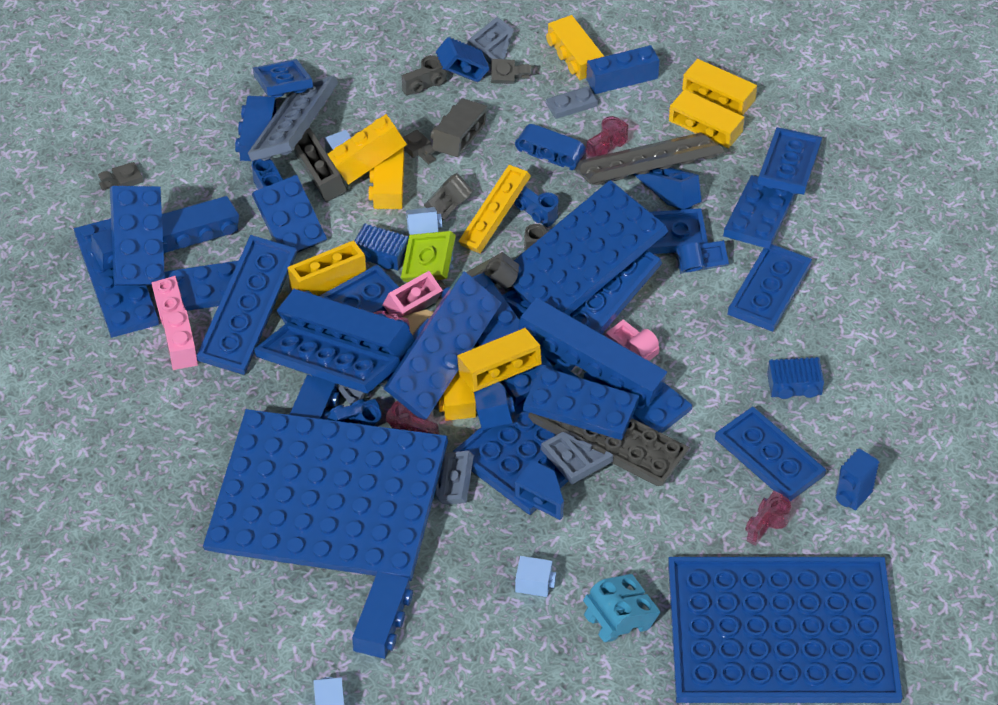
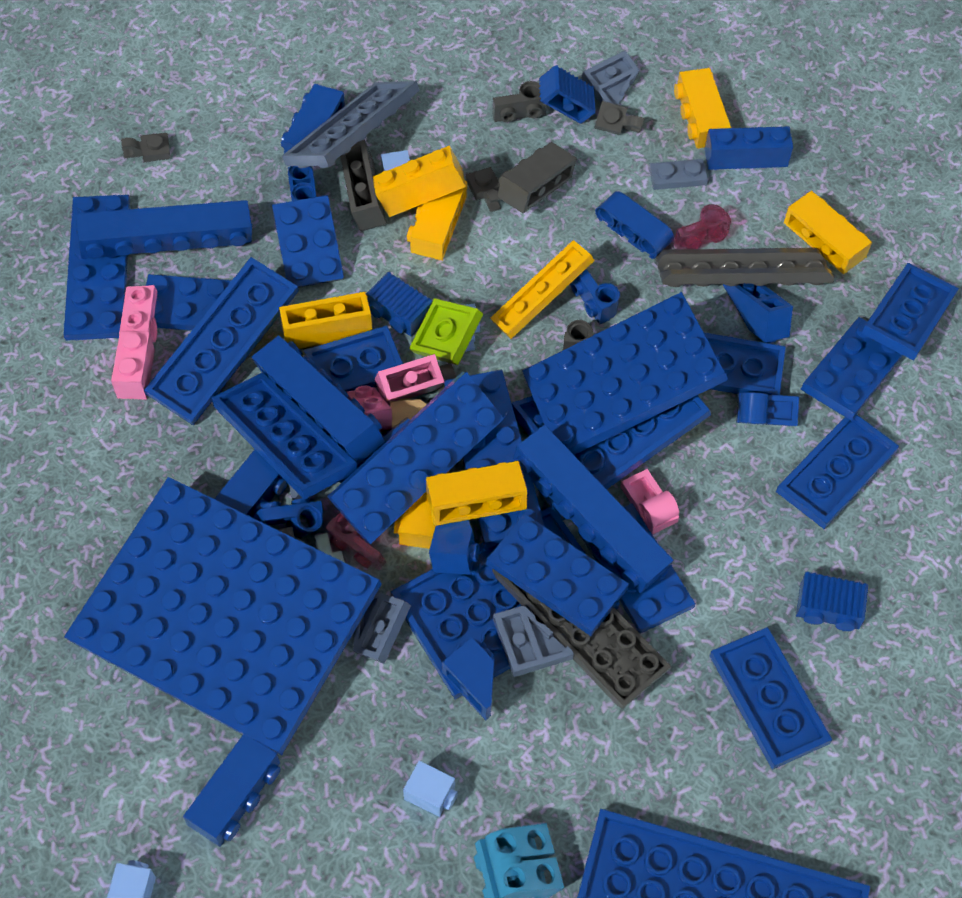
camera: 15 degrees right, 10 degrees up
(137, 235) = (122, 227): blue plate -> none
(282, 78) = (360, 71): blue plate -> none
(423, 220) = (456, 285): light blue brick -> none
(449, 195) = (496, 260): dark grey plate -> none
(499, 269) = (517, 370): dark grey plate -> none
(719, 87) = (855, 196): yellow brick -> none
(772, 513) = (724, 794): clear pink plate -> none
(856, 479) = (865, 769): blue brick -> none

